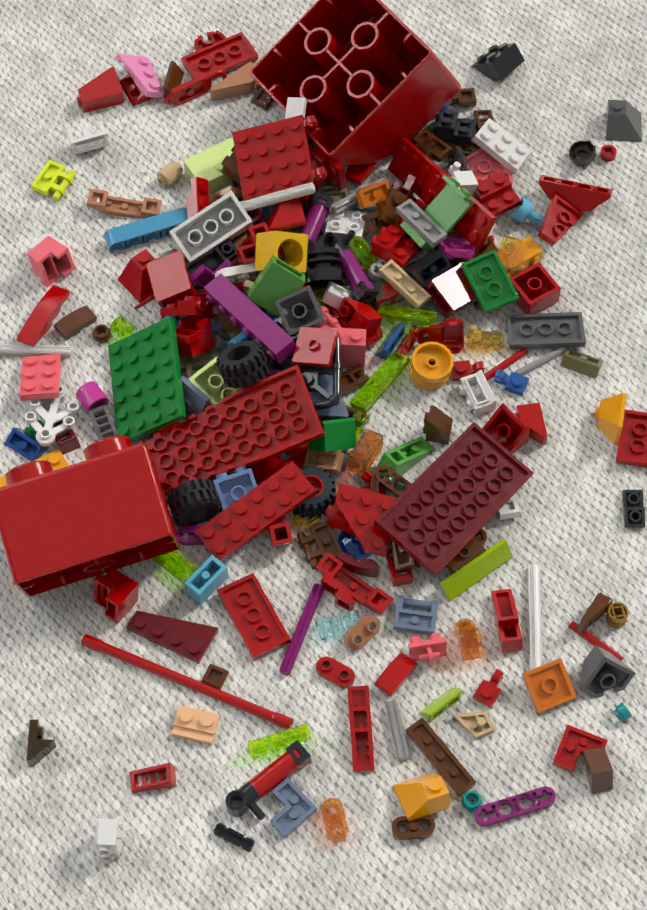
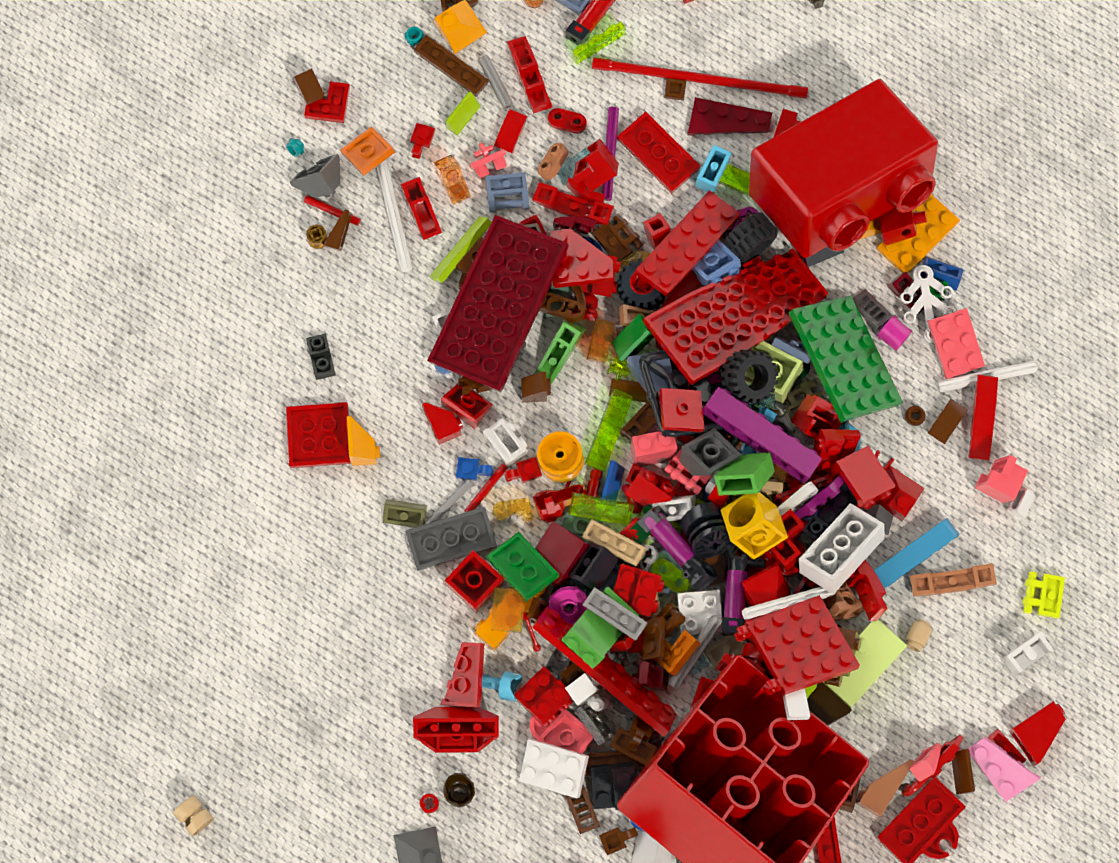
camera: 160 degrees right, 15 degrees up
(121, 327) = (896, 425): clear neon green wheel -> none
(195, 725) = (678, 42): light nougat plate -> none
(202, 75) = (926, 762): none -> coral slope
(323, 601) = (596, 167): none -> red plate
(476, 723) = (426, 105): tan piece -> none
(516, 809) = (372, 38): magenta beam -> none

